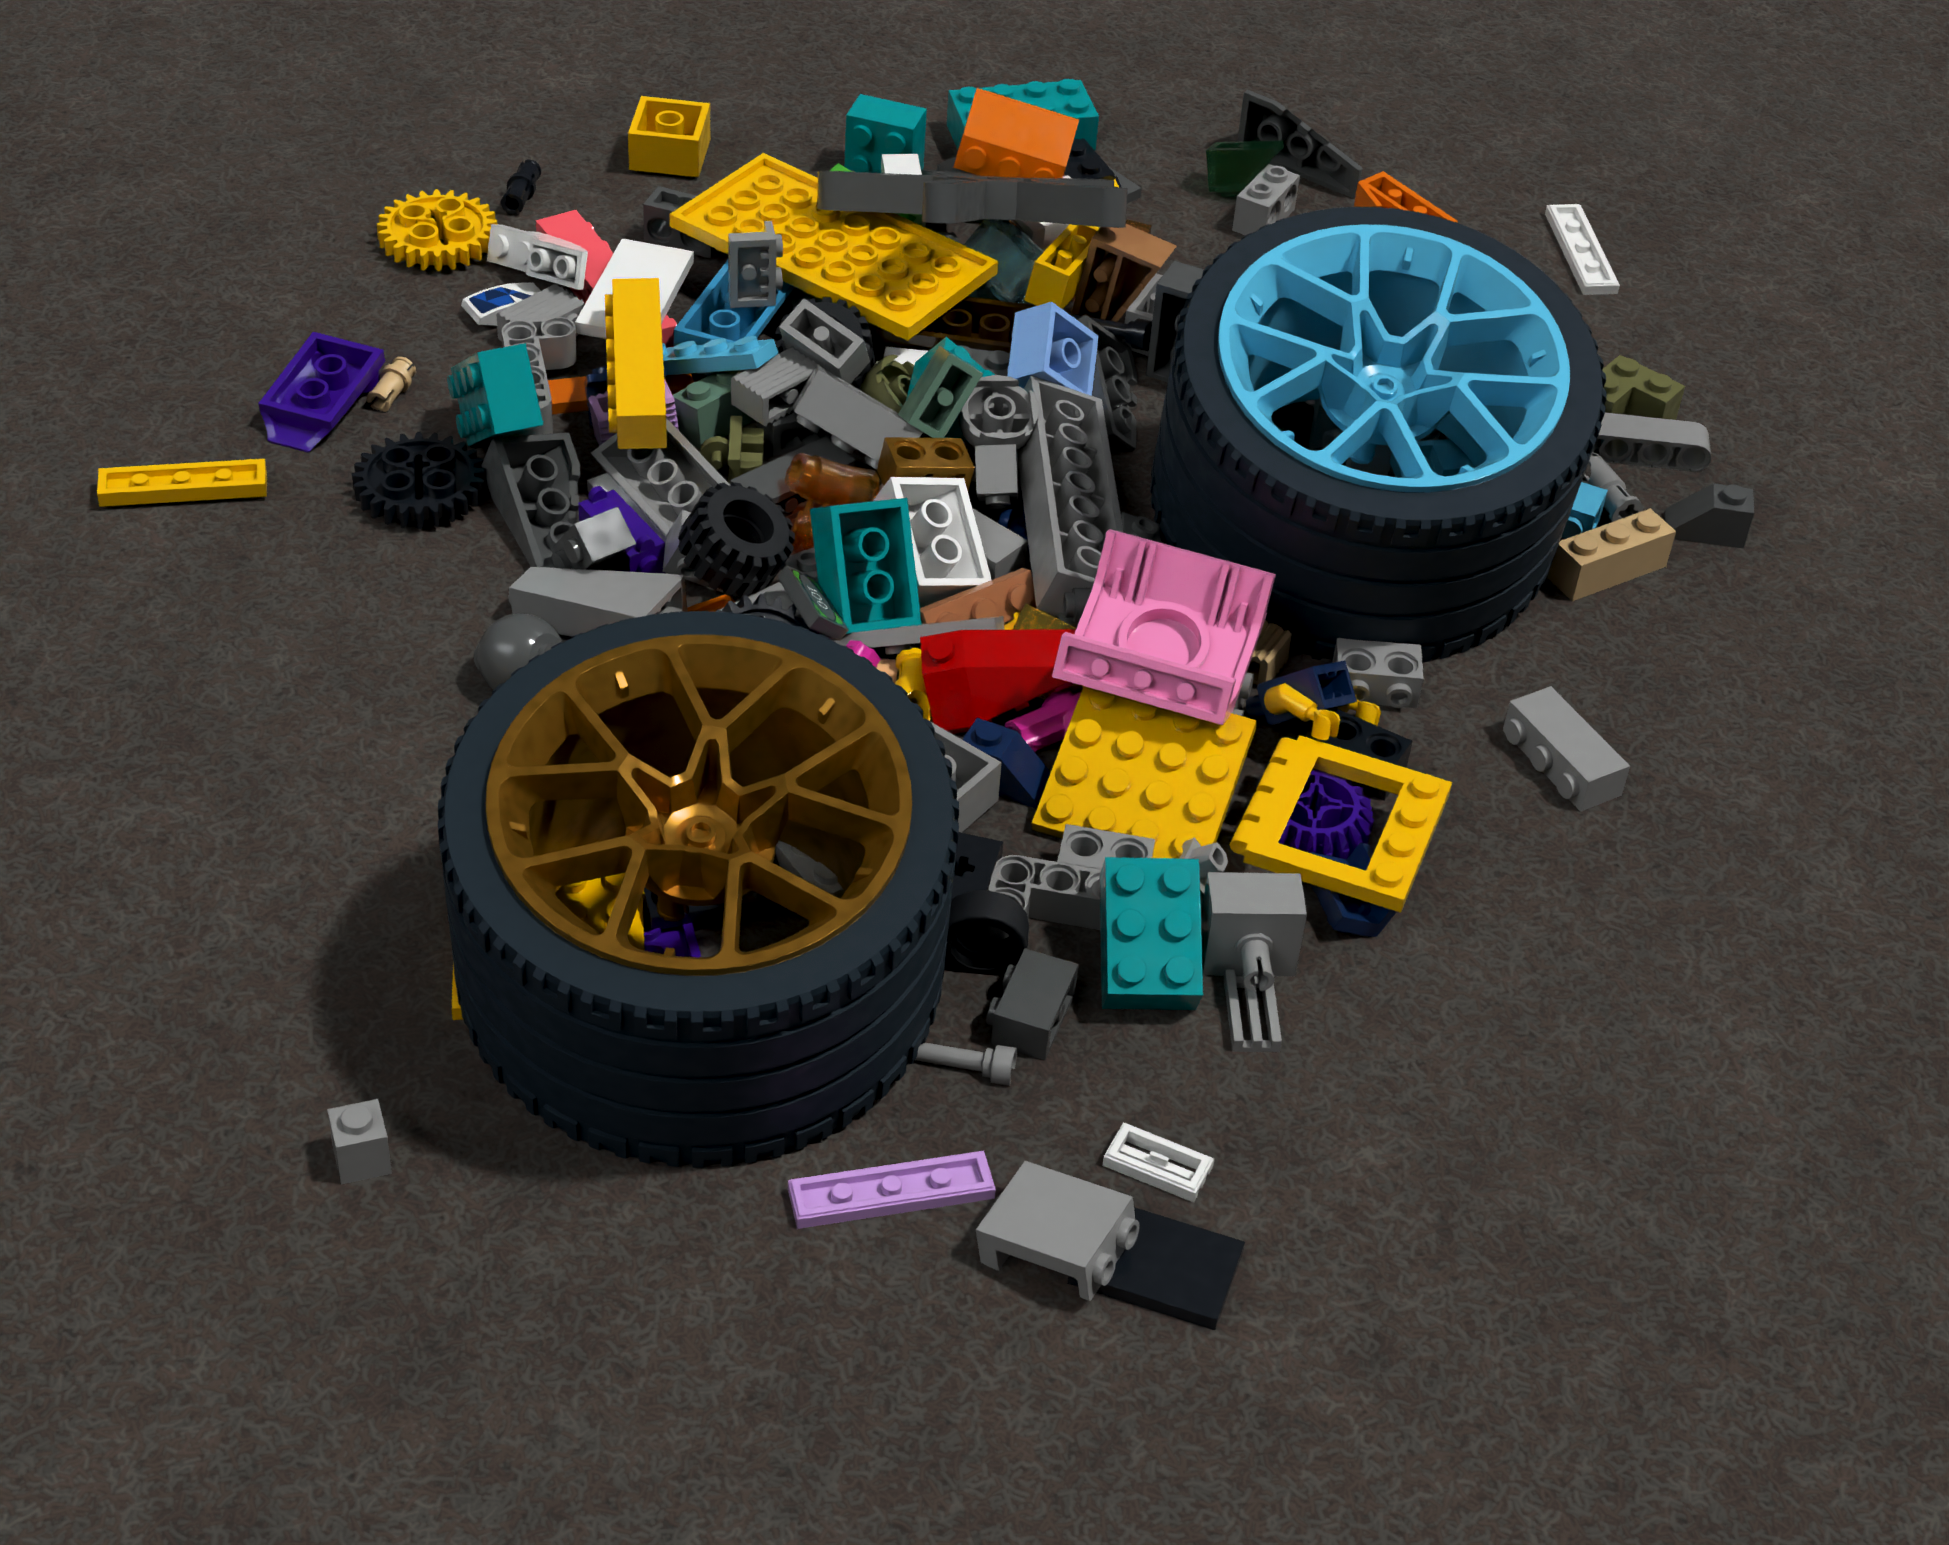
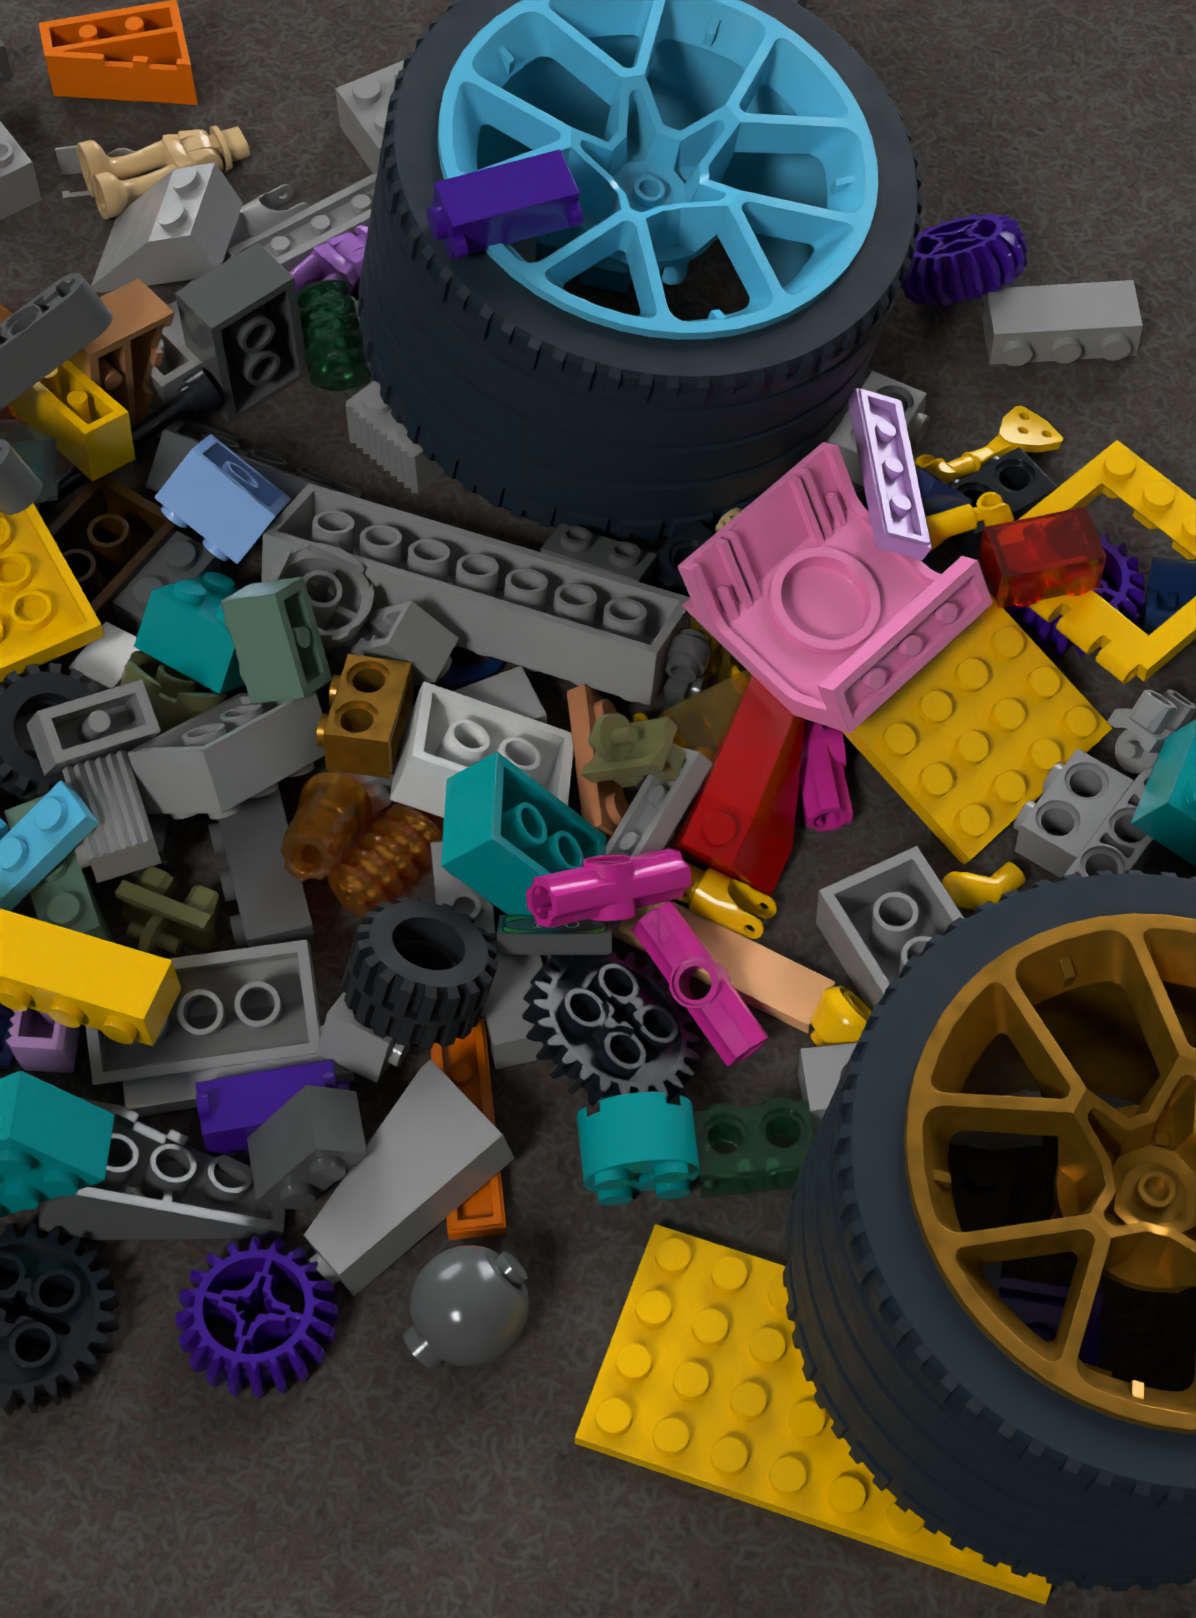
camera: 60 degrees left, 15 degrees up
(468, 574) = (214, 1299): none -> dark purple gear
(856, 606) = (608, 888): none -> dark pink piece
(976, 588) = (633, 750): none -> olive hips
(1004, 828) = (972, 890): none -> yellow arm
(1022, 771) = (866, 841): dark blue slope -> none
(1262, 275) = (504, 204): none -> dark purple brick
(1293, 752) = (1042, 558): none -> clear red brick
(1302, 646) = (889, 474): none -> lavender tile
(1444, 757) = (1018, 429): none -> yellow piece
(1567, 665) = (965, 259): none -> dark purple gear

